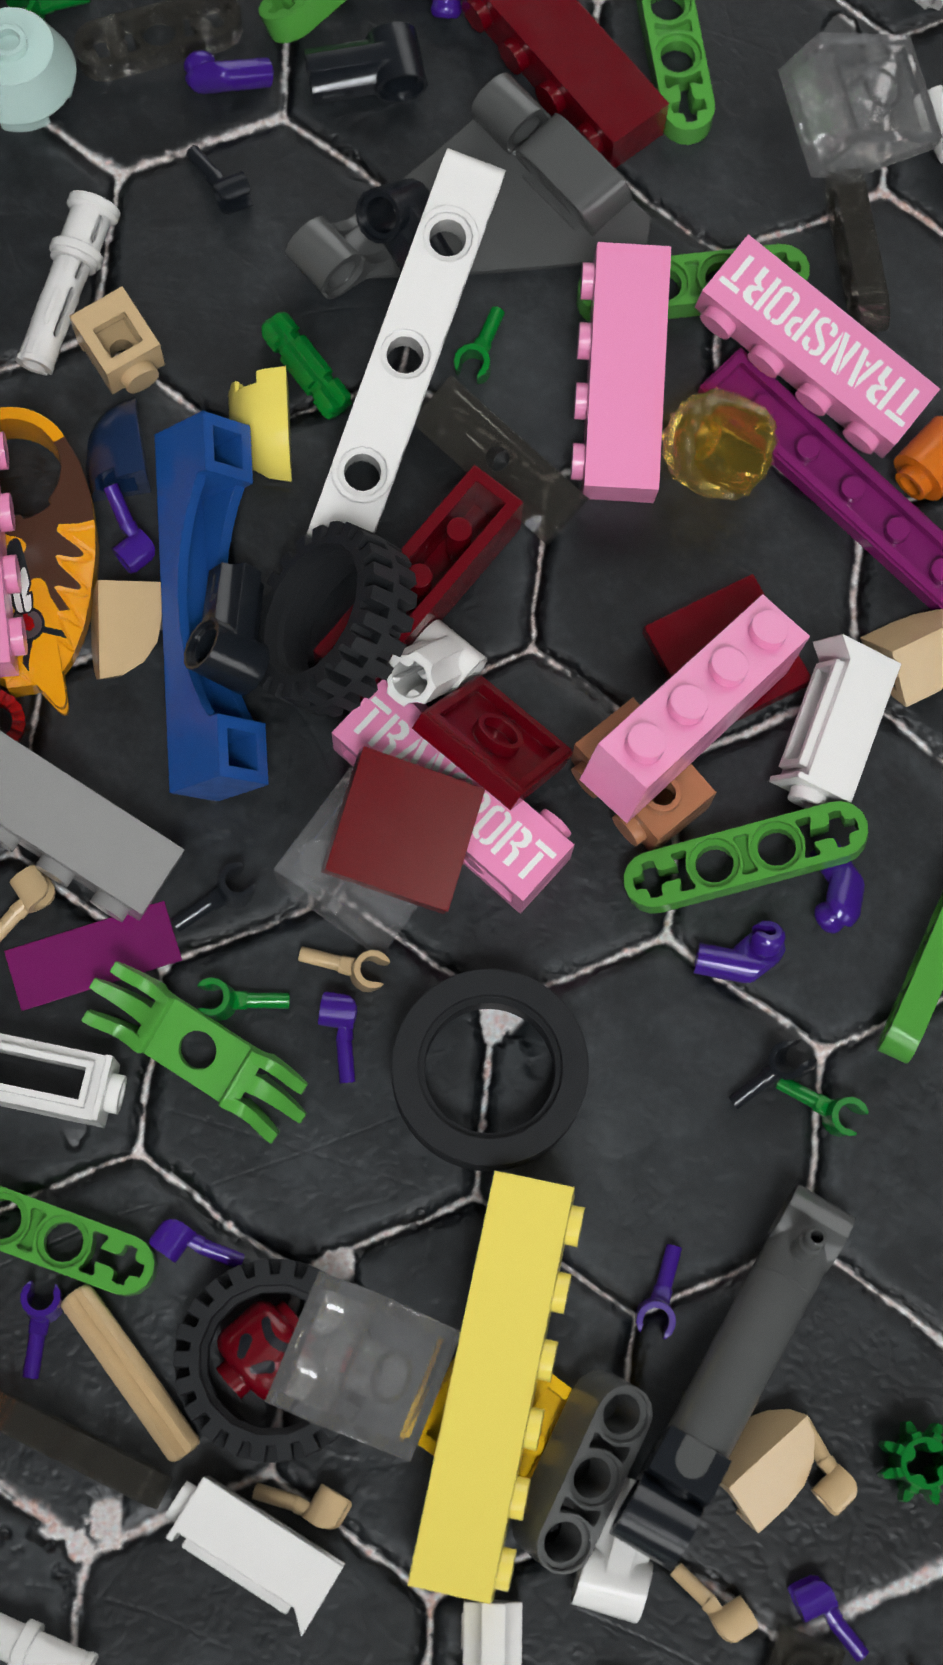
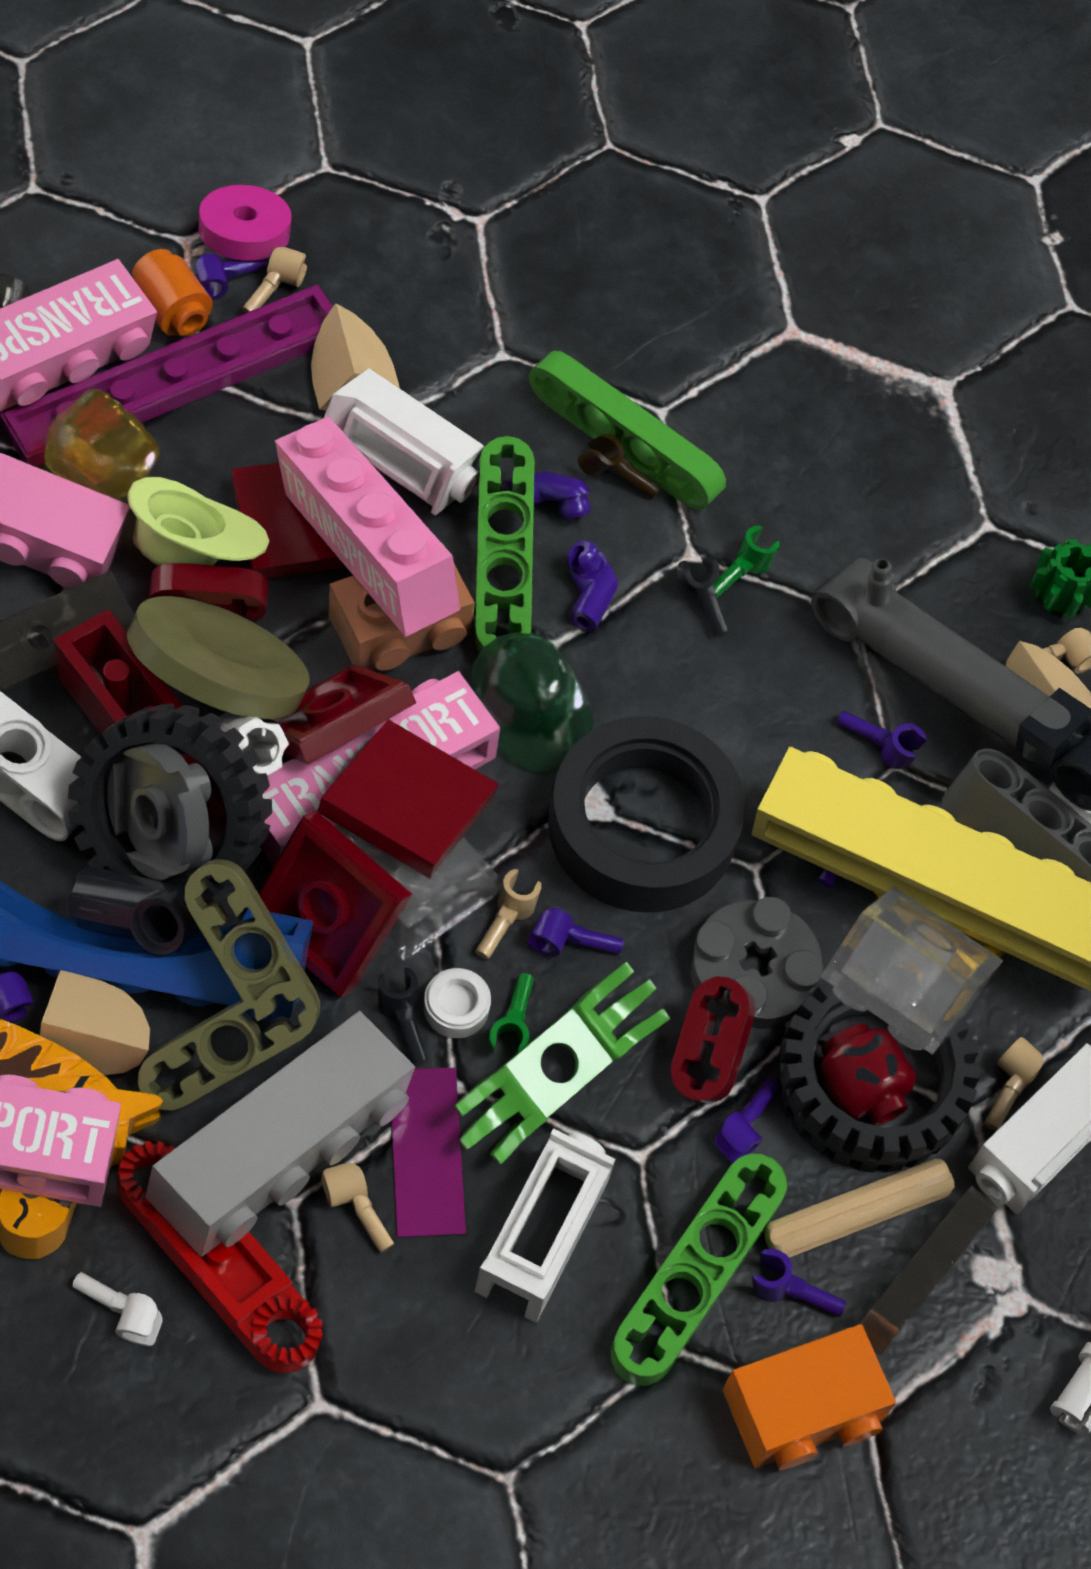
camera: 80 degrees left, 15 degrees down
(168, 747) = (255, 987): none -> olive beam
(242, 943) = (457, 1003): none -> white tile
(257, 1176) = (697, 1036): none -> dark red beam
(302, 781) = (343, 892): none -> dark red tile
(309, 612) = (161, 809): none -> dark grey plate
(365, 1179) = (769, 930): none -> dark grey plate
(512, 617) = (218, 657): none -> olive piece
(584, 928) = (532, 700): none -> clear green piece
(602, 594) = (227, 587): none -> dark red beam
(663, 554) = (188, 528): none -> yellowish green piece
(897, 945) = (607, 454): none -> dark brown hand

